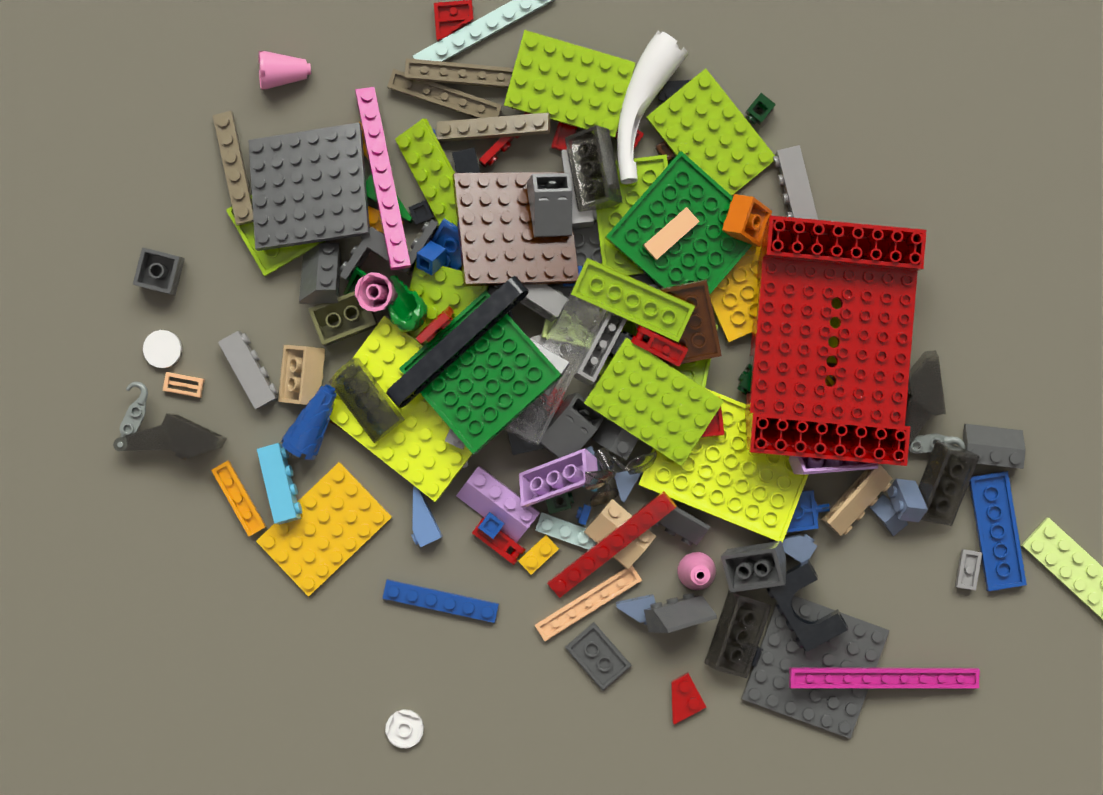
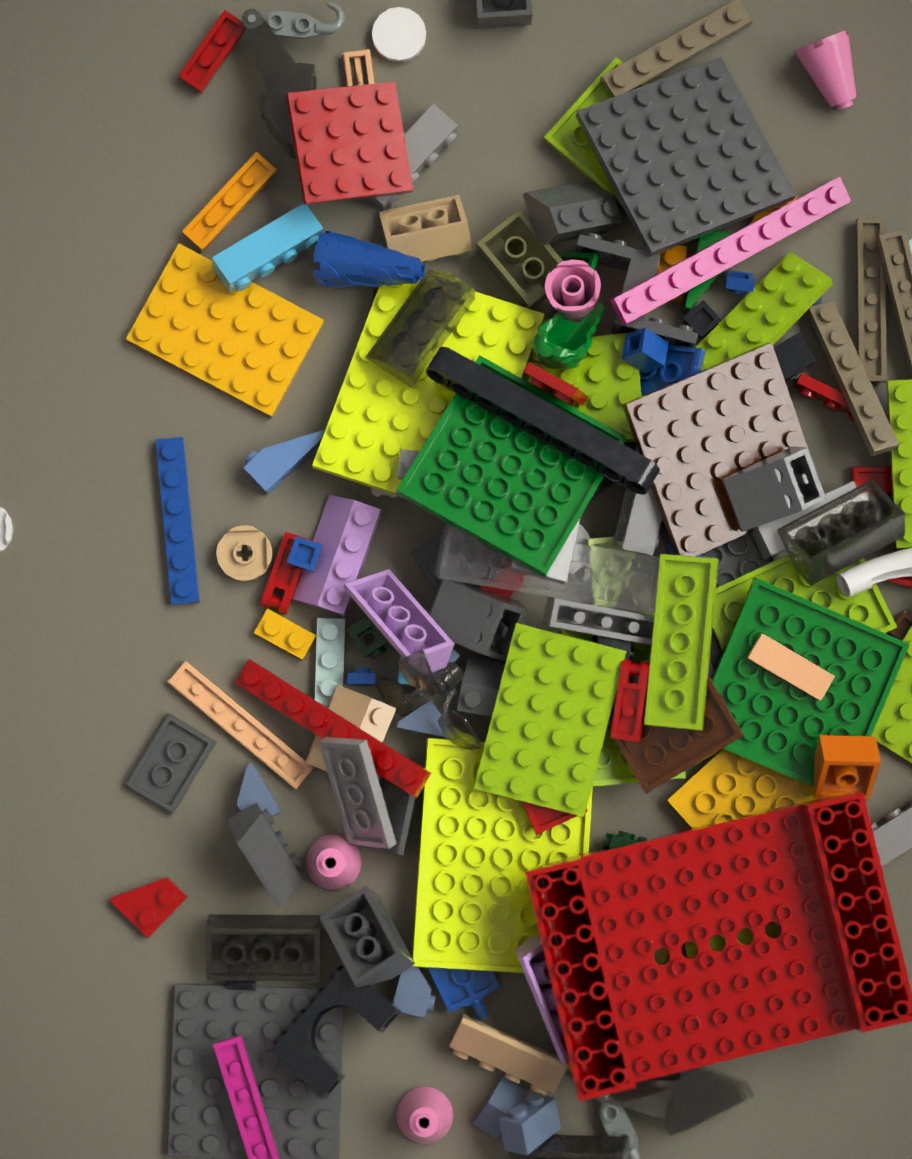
camera: 70 degrees right, 5 degrees down
(133, 477) = (212, 52): none -> red plate
(227, 407) = (349, 143): none -> plate
(404, 179) = (739, 282): none -> blue plate
(467, 568) = (232, 543): none -> tan plate
(659, 542) = (357, 792): none -> light grey plate
(877, 565) = (424, 1103): none -> bright pink cone

